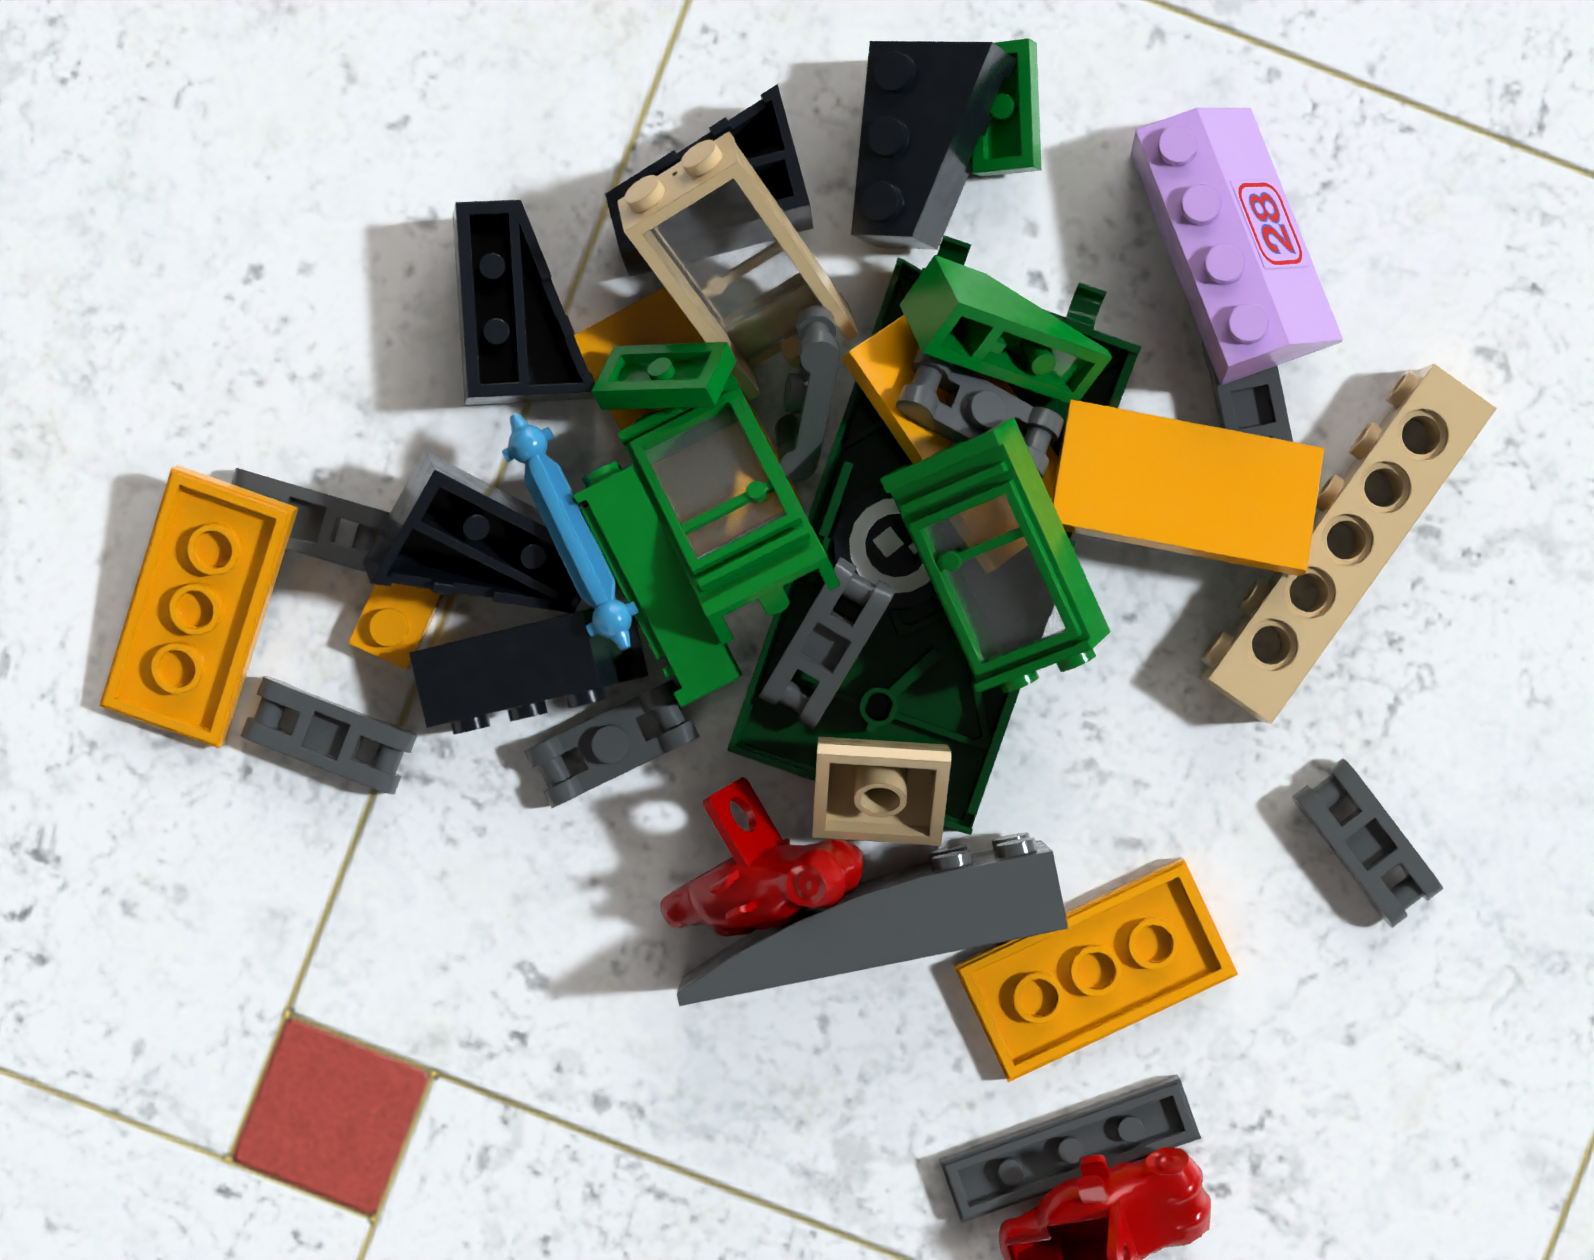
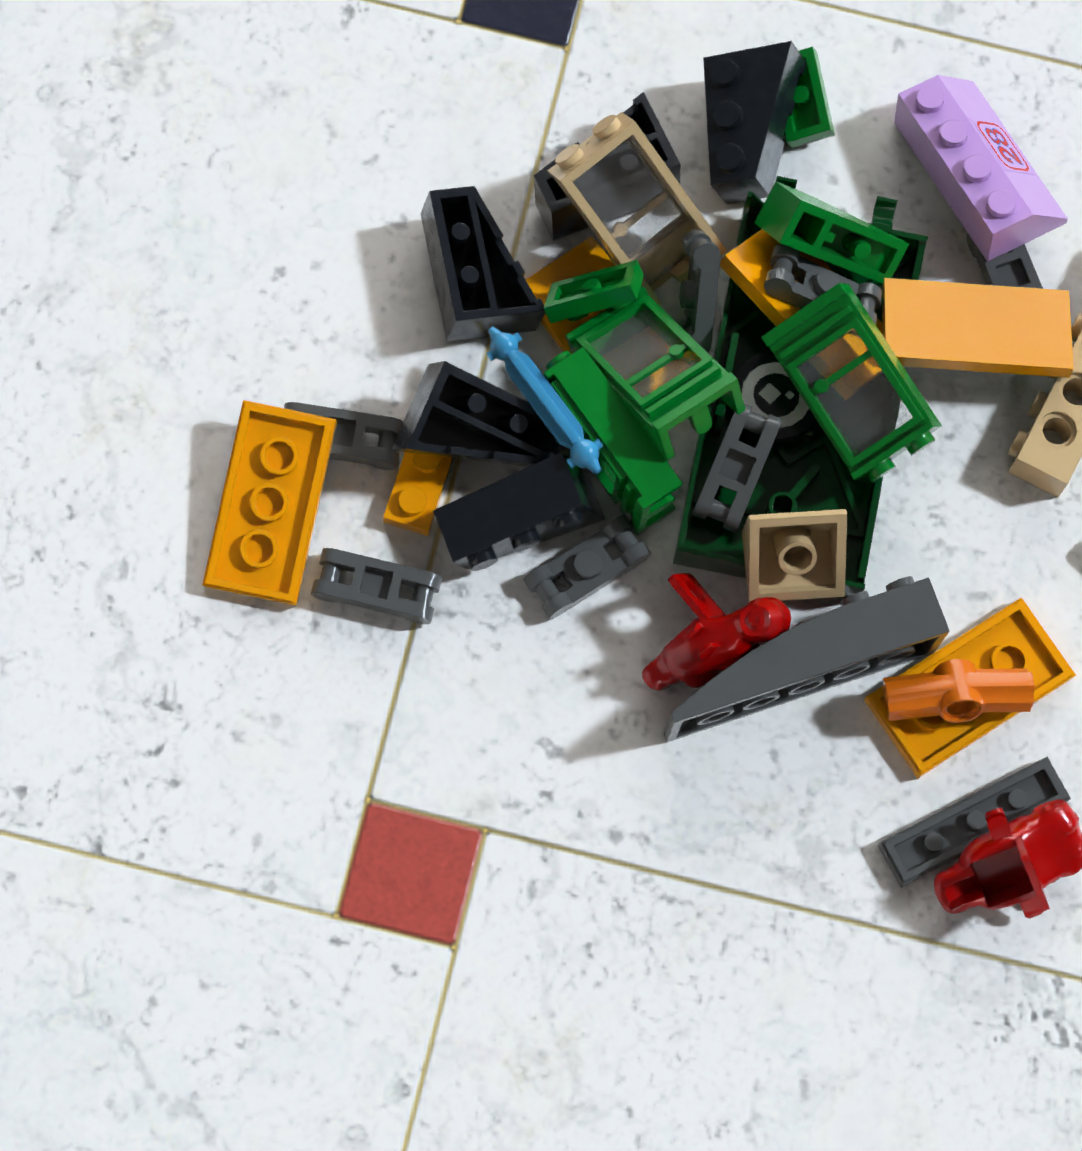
camera: 15 degrees left, 15 degrees down
(1073, 990) = (958, 692): none -> orange piece

